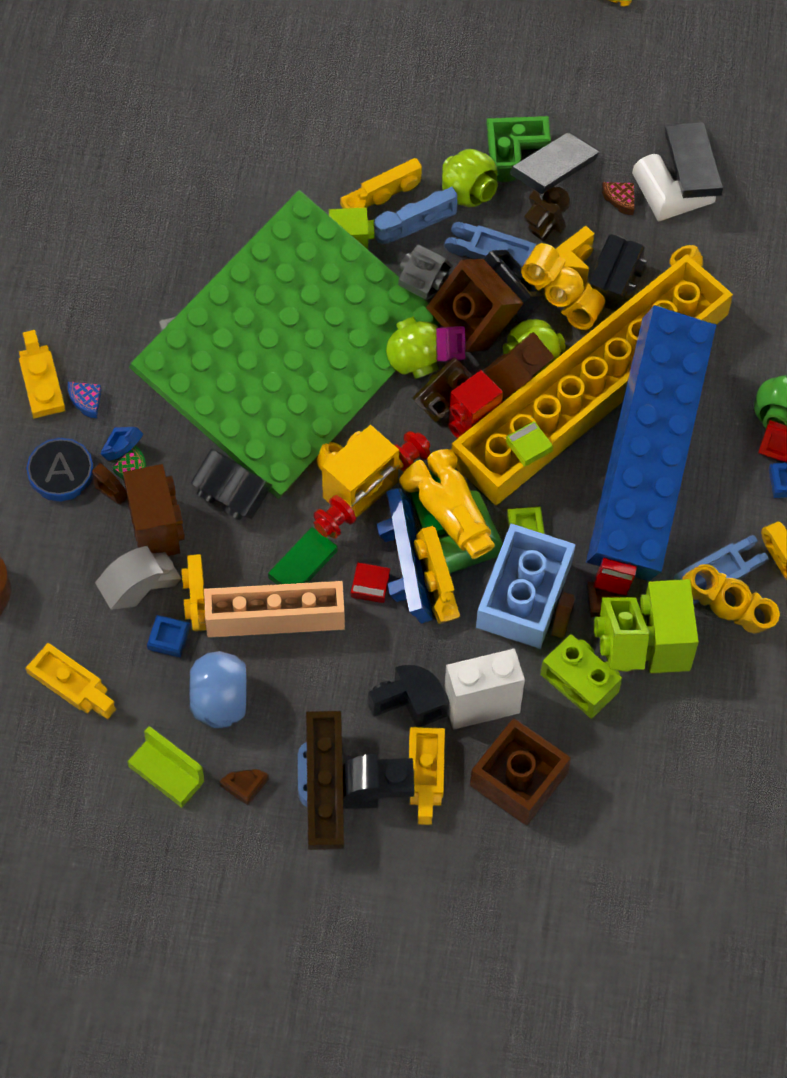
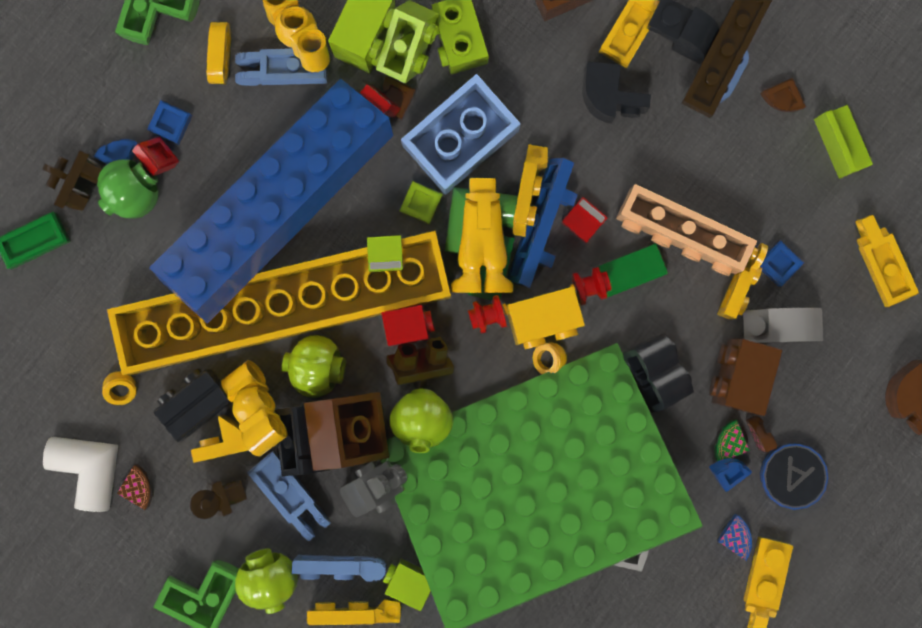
camera: 150 degrees left, 25 degrees up
(218, 689) = (771, 181): medium blue piece -> none
(450, 343) = (391, 402): magenta tile -> none
(484, 688) = (555, 52): white brick -> none
(519, 364) = (351, 343): reddish brown brick -> none
(554, 163) = (181, 548): piece -> none
(563, 614) = (438, 98): reddish brown tile -> none
(693, 160) = (47, 483): black piece -> none

